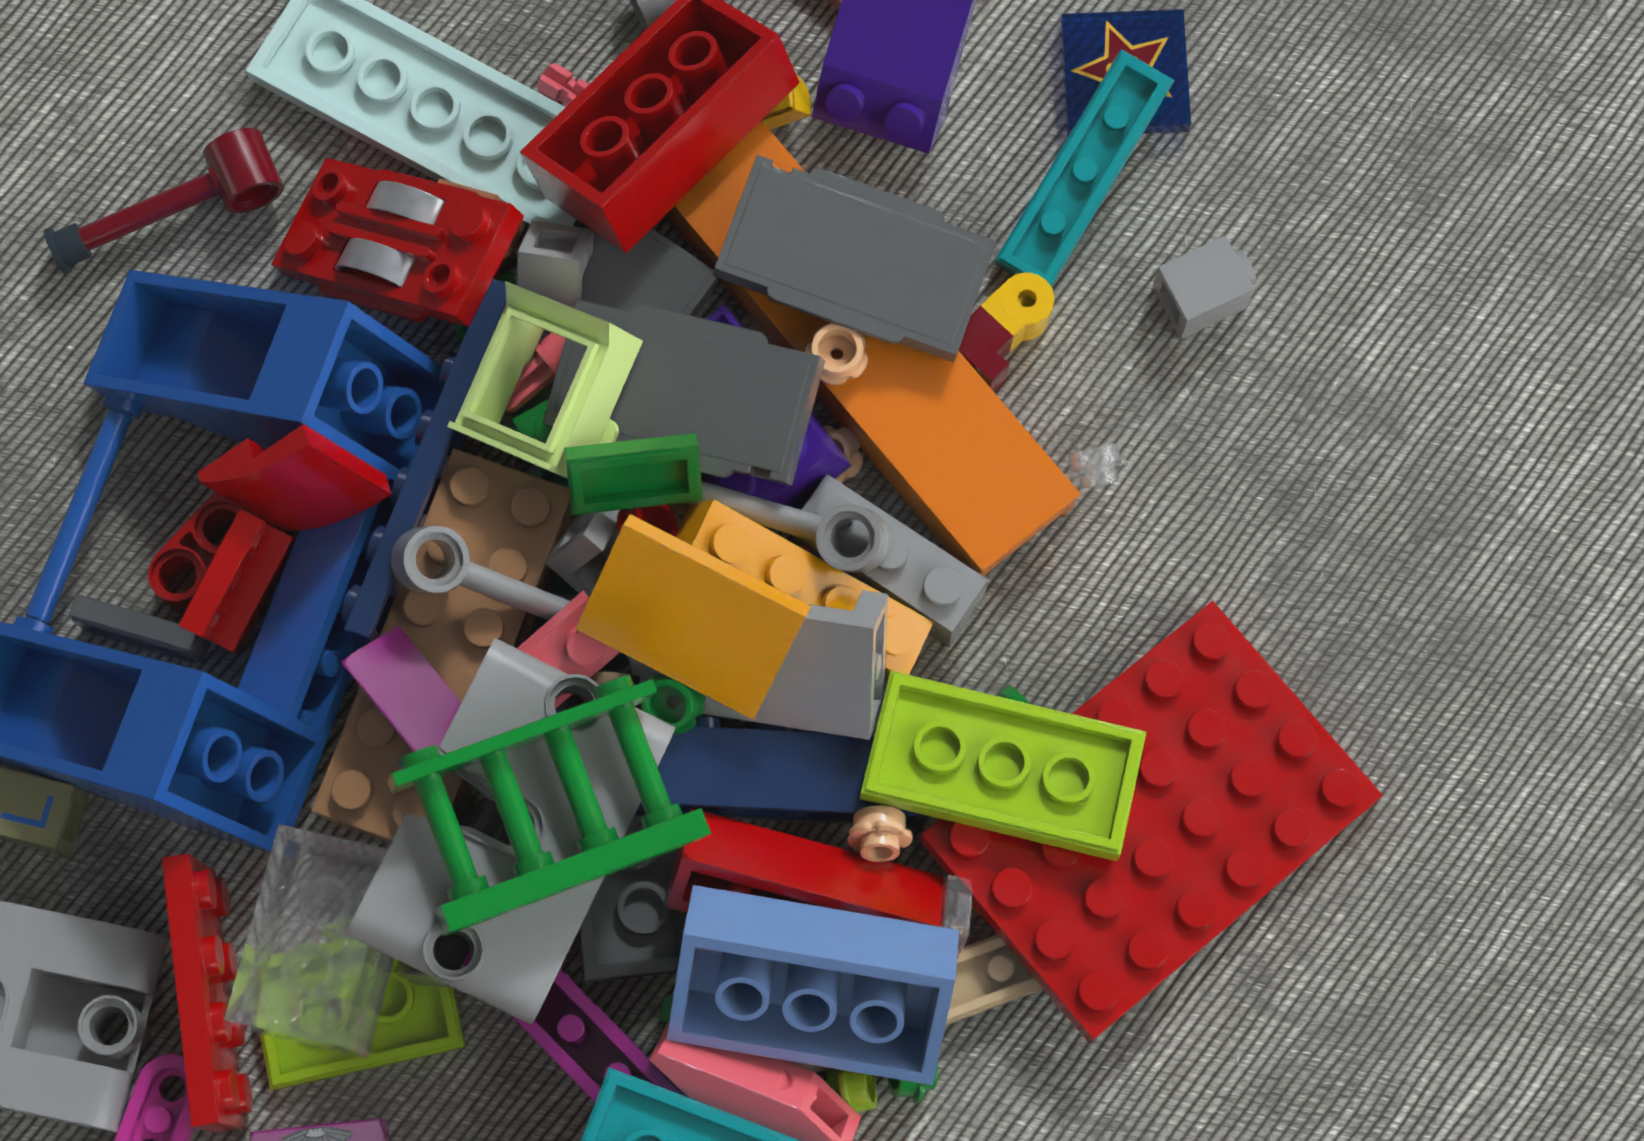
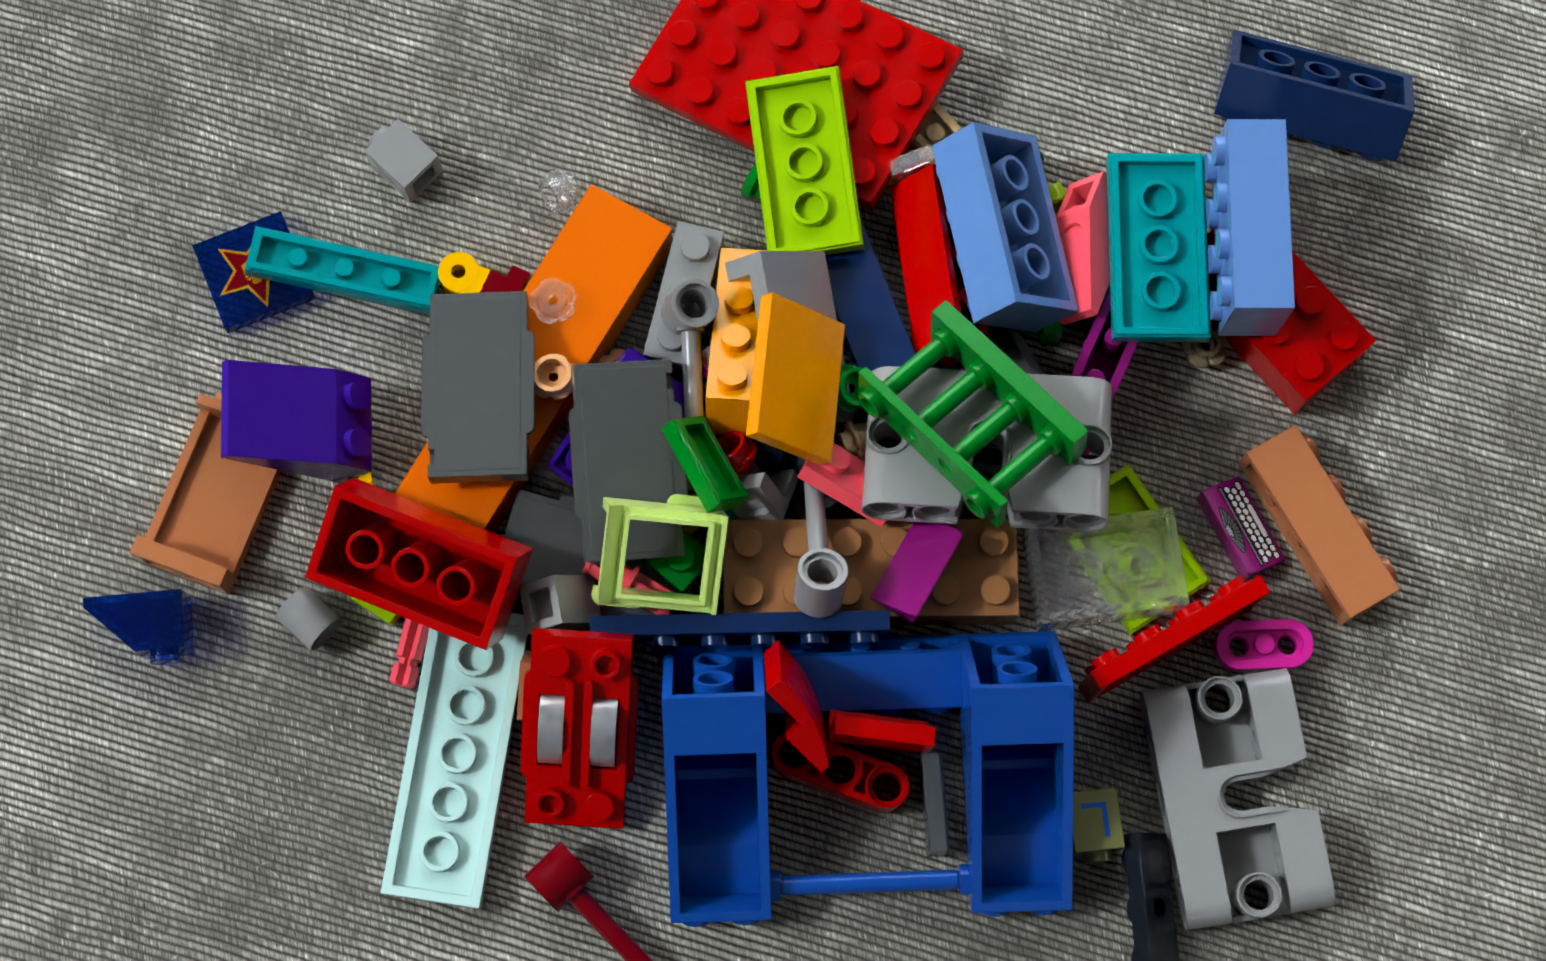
camera: 115 degrees left, 0 degrees up
(879, 833) = (881, 231): light nougat plate -> none
(932, 403) = (557, 312): none -> clear plate

